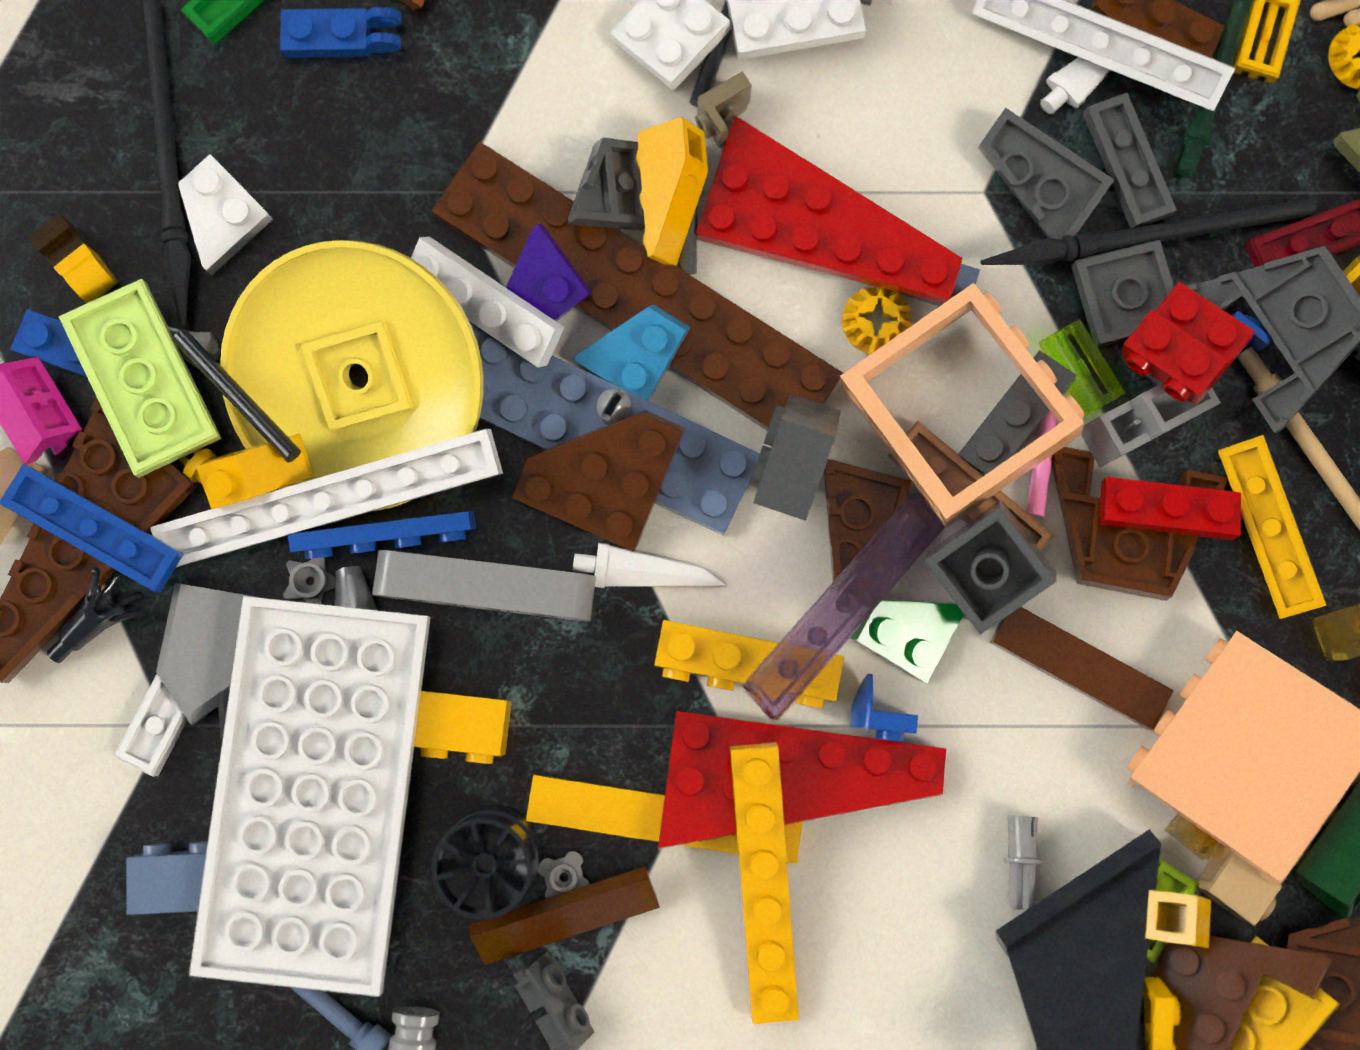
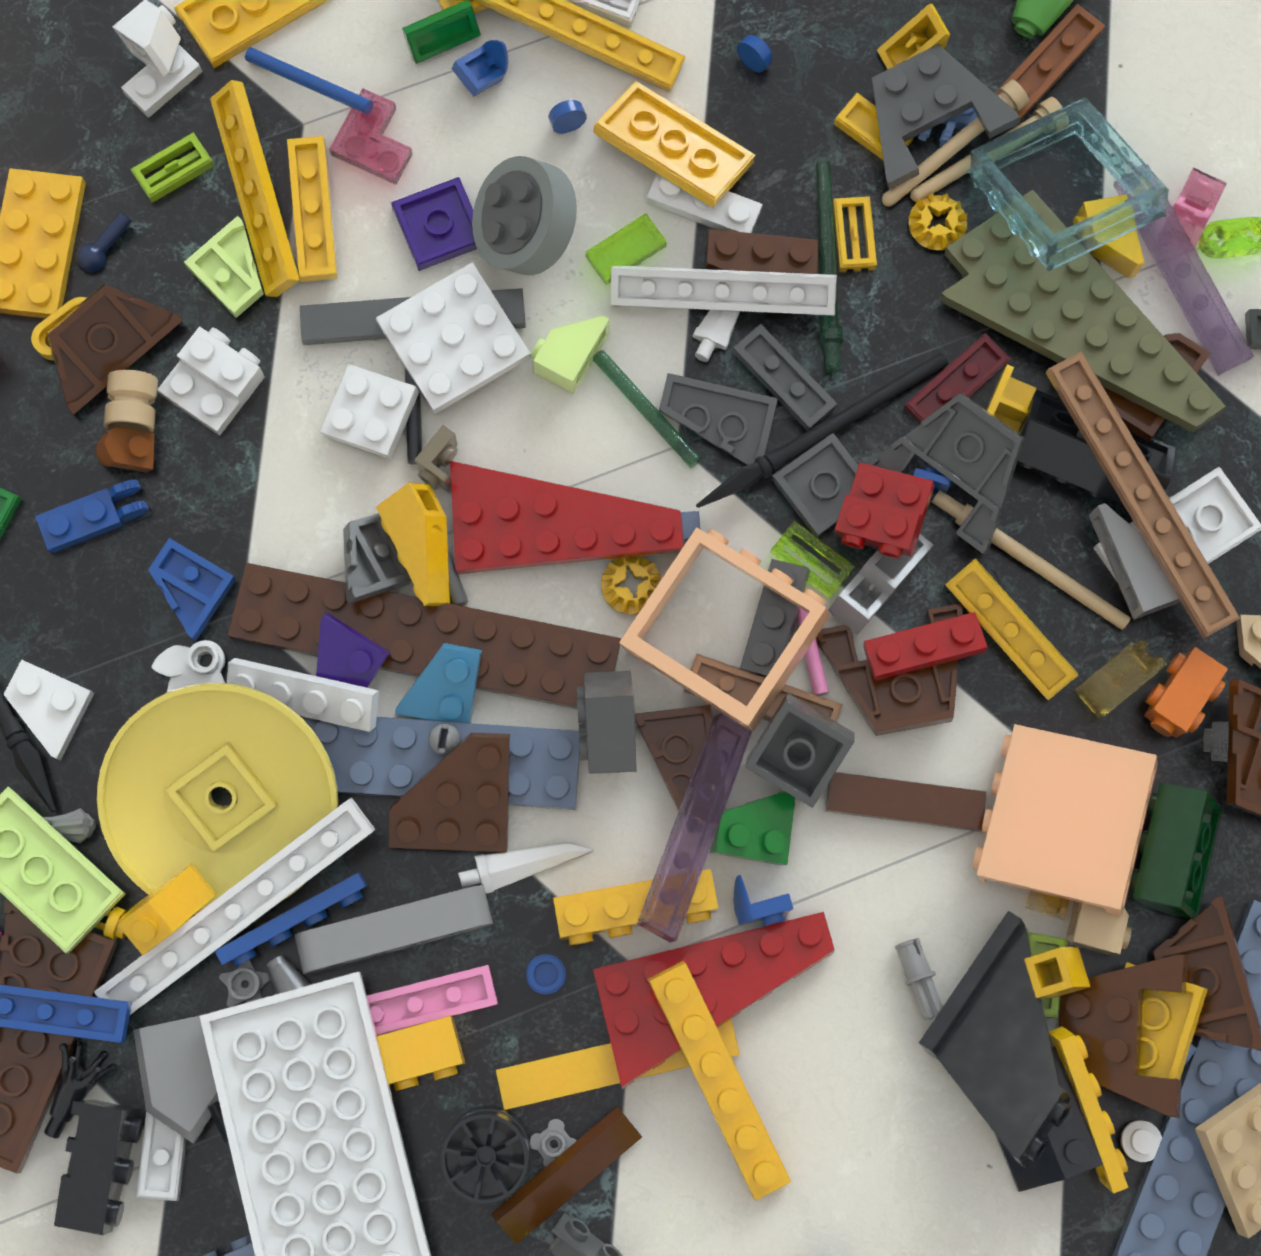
camera: 25 degrees left, 5 degrees down
(85, 707) = (97, 1166): none -> black wedge
(236, 395) = (127, 852): black bar -> none
(376, 223) = (184, 666): none -> white plate
(412, 143) = (190, 585): none -> blue wing
(495, 675) = (432, 1000): none -> bright pink plate
(625, 696) = (546, 974): none -> blue tile
(908, 46) = (569, 351): none -> yellowish green slope
(966, 140) = (646, 408): none -> clear green bar

